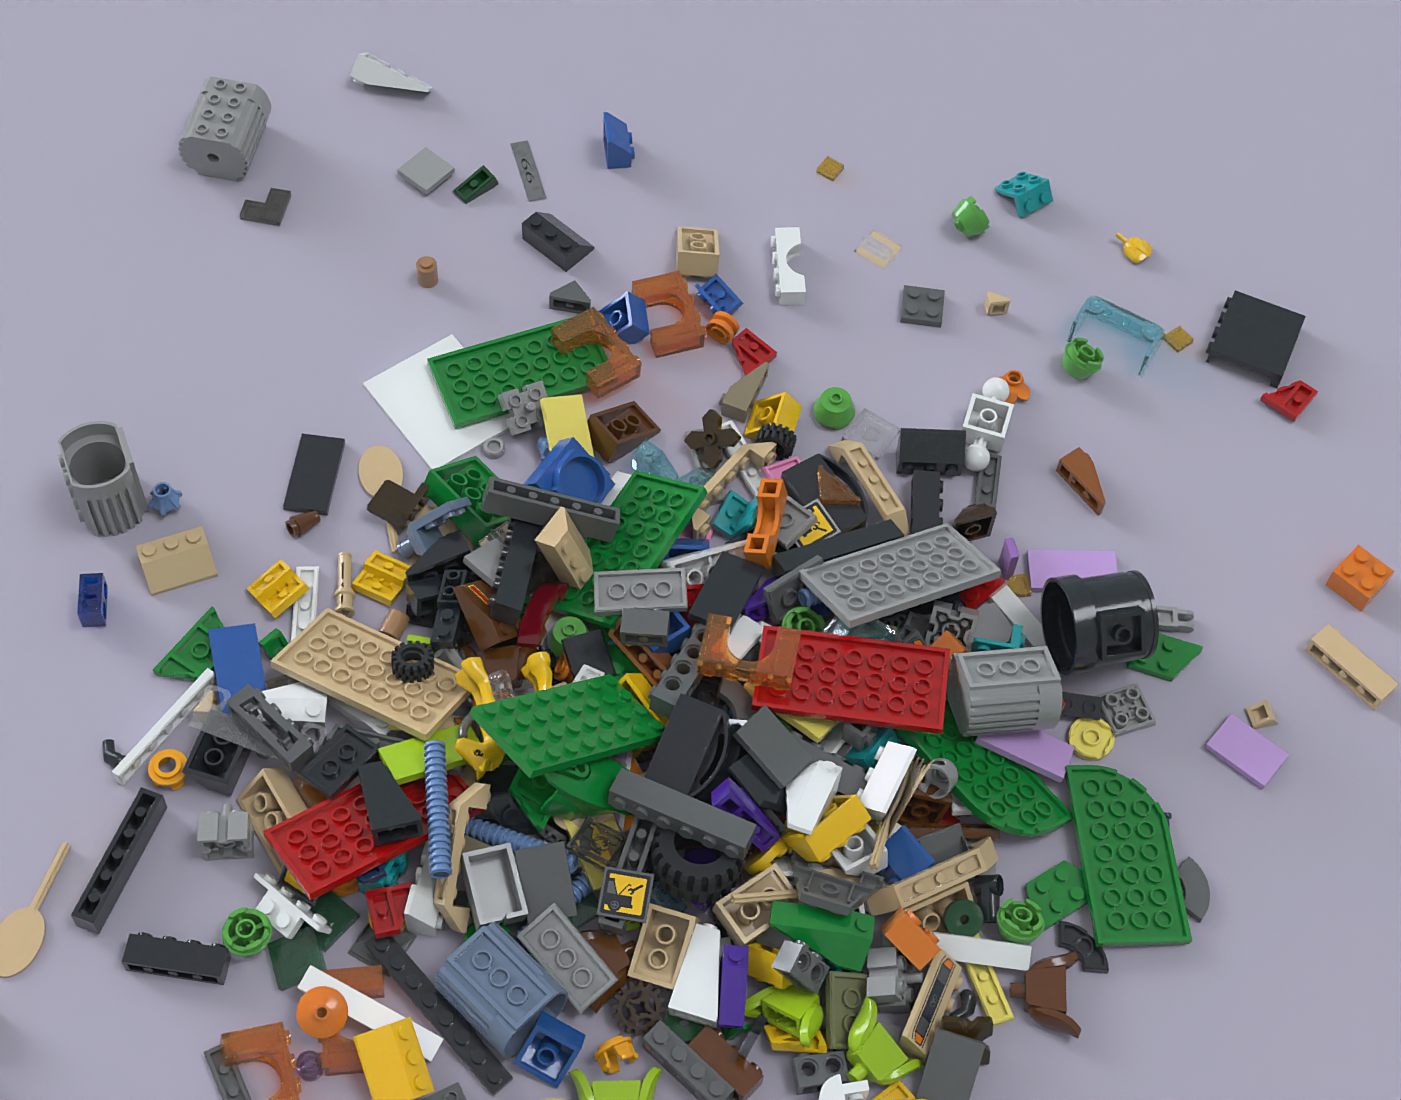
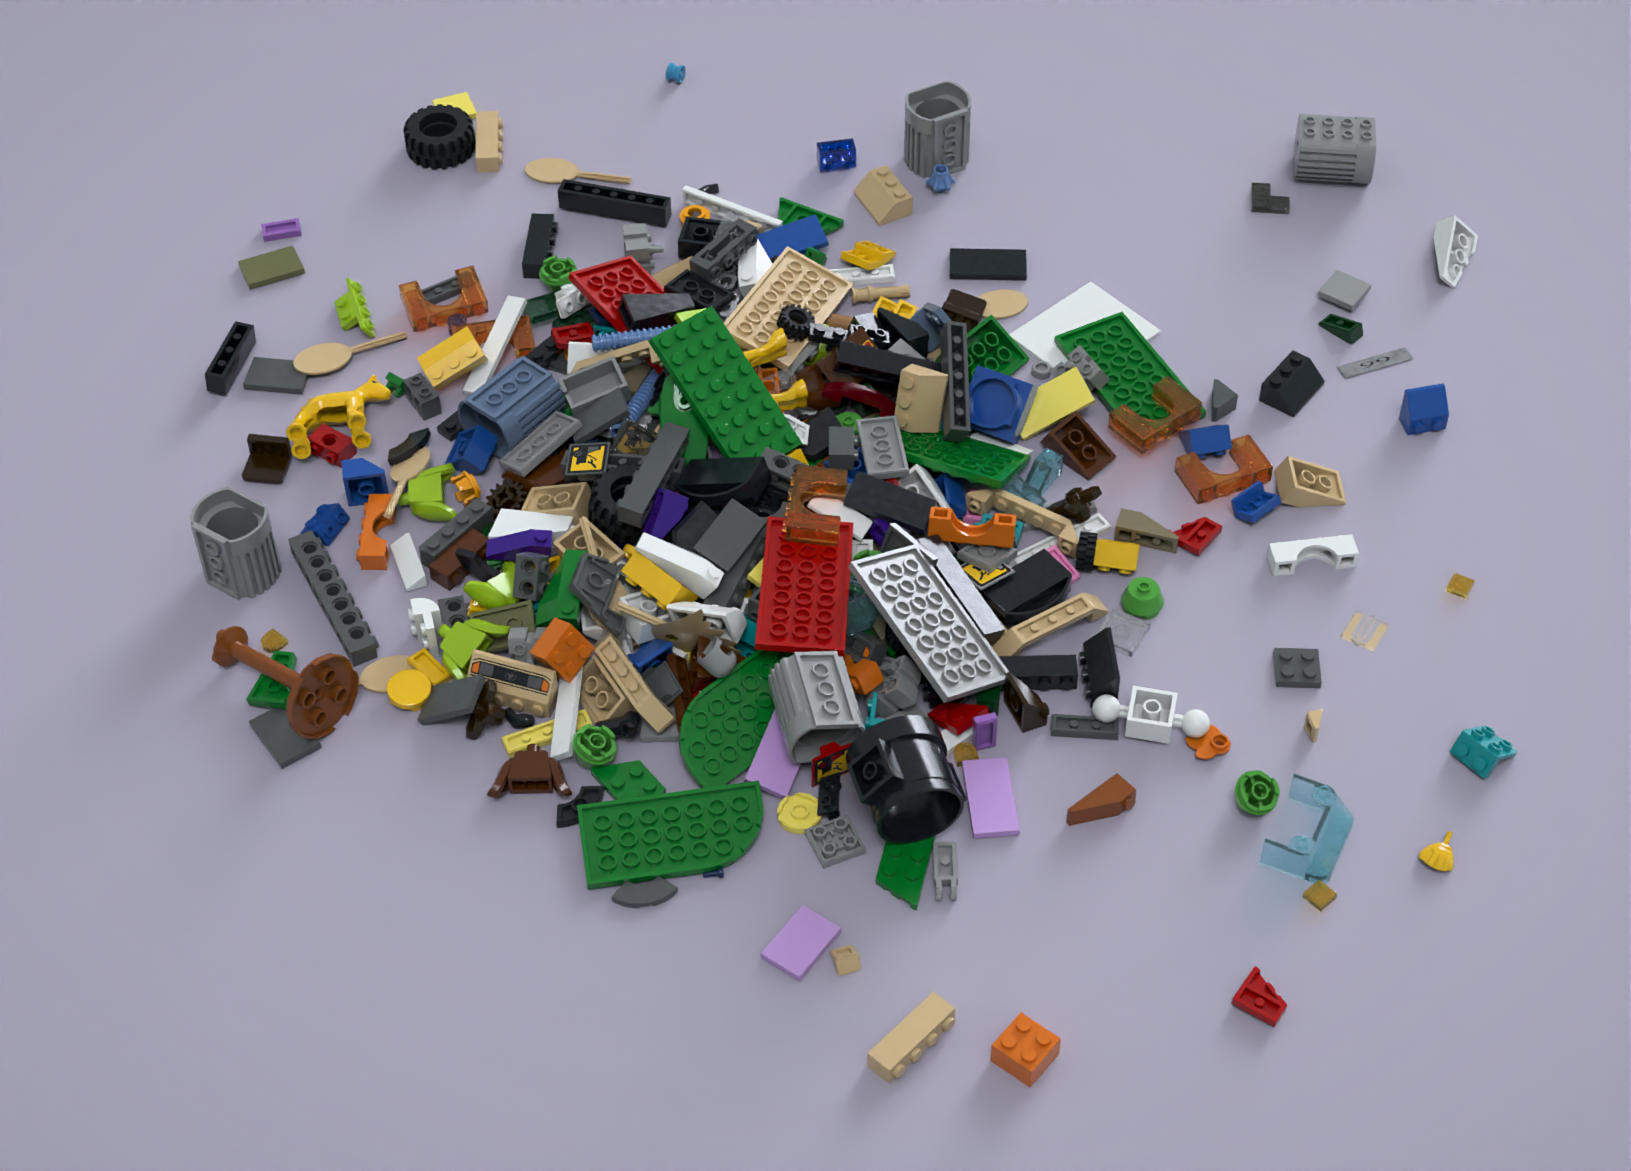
camera: 90 degrees right, 10 degrees down
(301, 523) = (934, 261): reddish brown cone -> none
(336, 1012) = (491, 314): orange dish -> none
(427, 272) = (1221, 302): medium nougat brick -> none
(722, 327) = (1216, 507): orange wheel -> none
(833, 490) = (1029, 583): clear orange tile -> none
(961, 907) = (595, 712): dark green piece -> none
(970, 218) = (1422, 694): bright green cone -> none
(1256, 335) = (1337, 965): black panel -> none

